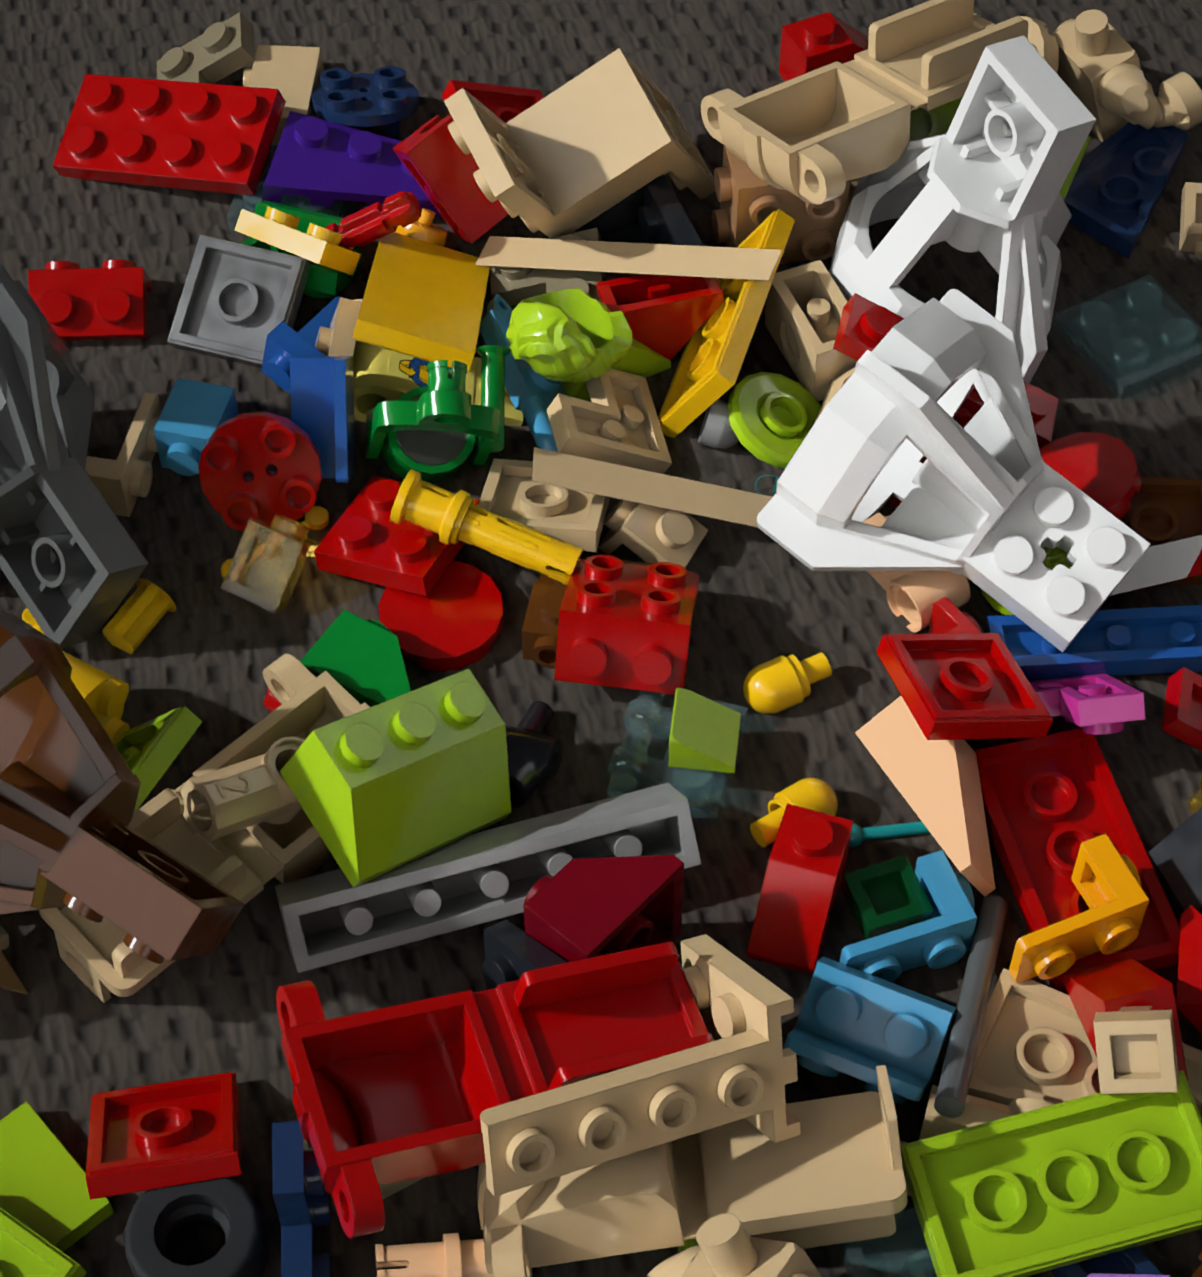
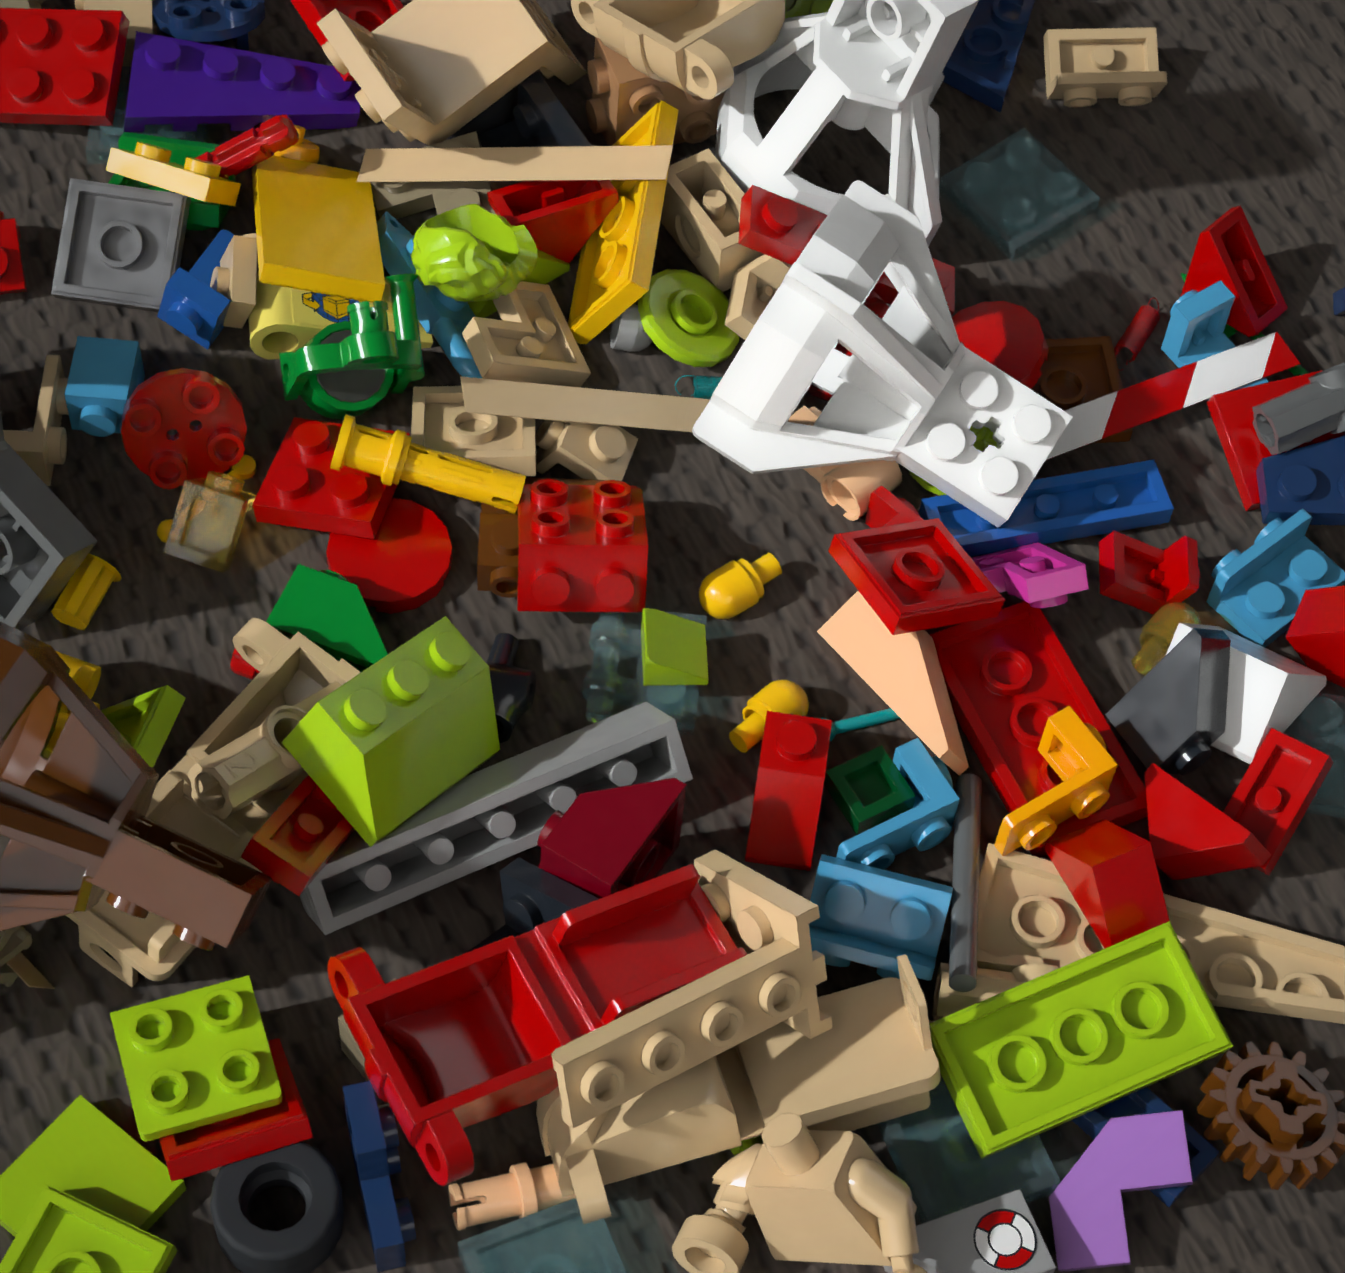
camera: 15 degrees left, 5 degrees up
(141, 1077) = (196, 1058): none -> lime bracket
(280, 869) = (298, 838): none -> red plate
(325, 410) = (236, 354): blue panel -> none
(448, 179) = (318, 91): red hinge -> none
(1136, 1051) = (1128, 909): tan tile -> none

